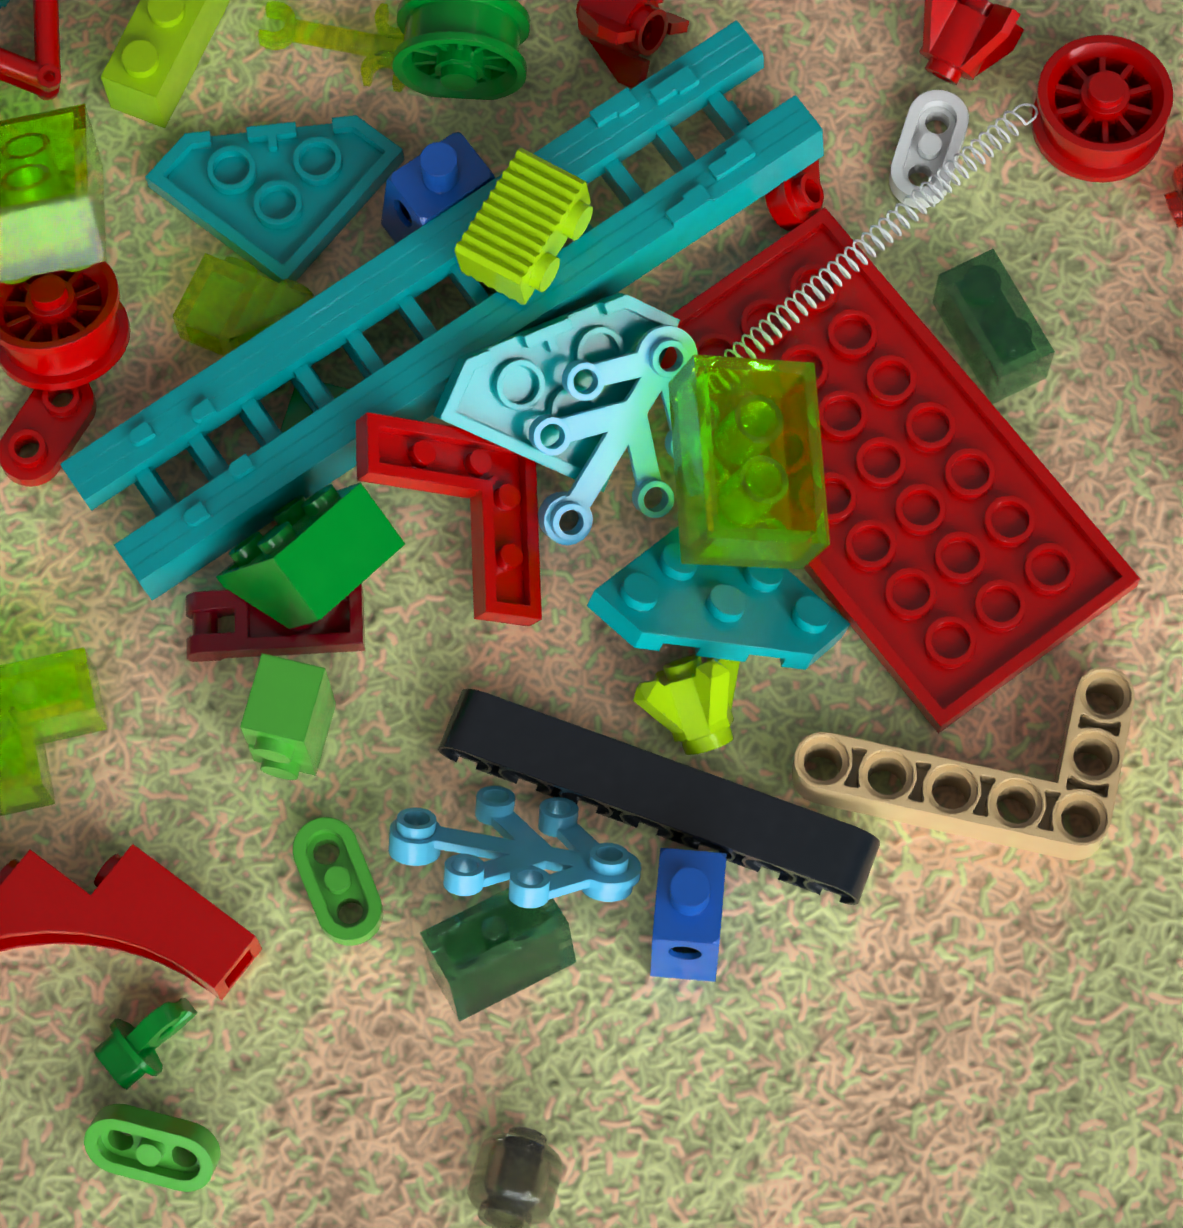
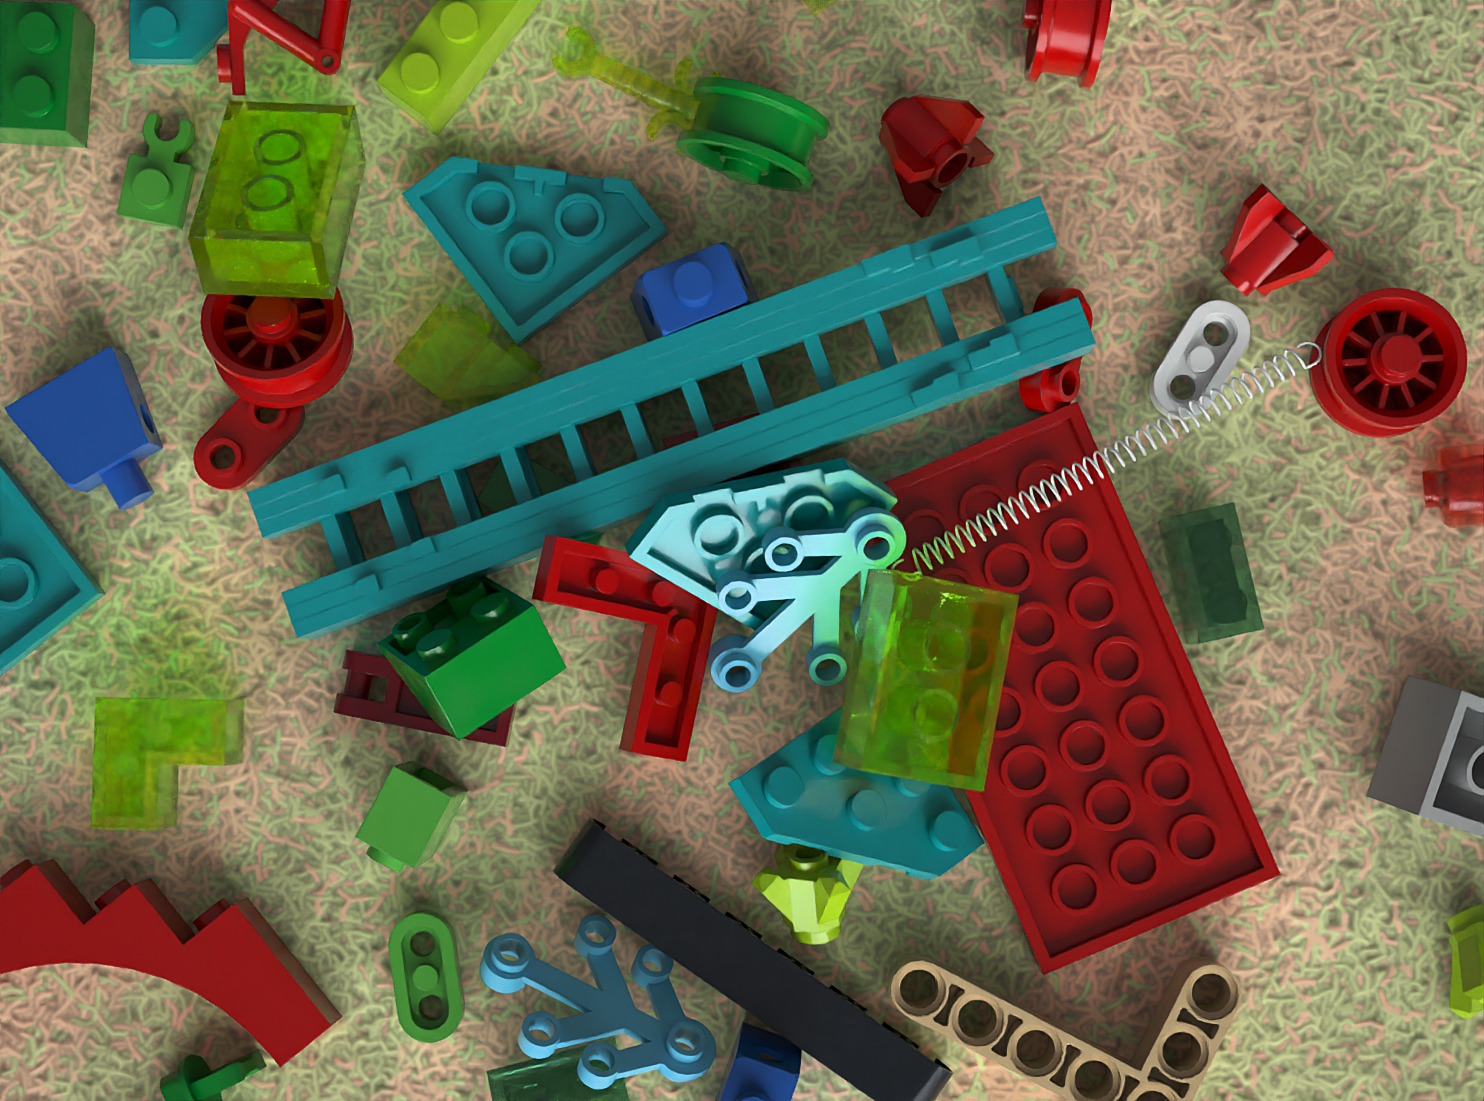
camera: 15 degrees right, 15 degrees up
(524, 227) = (763, 380): lime brick -> none

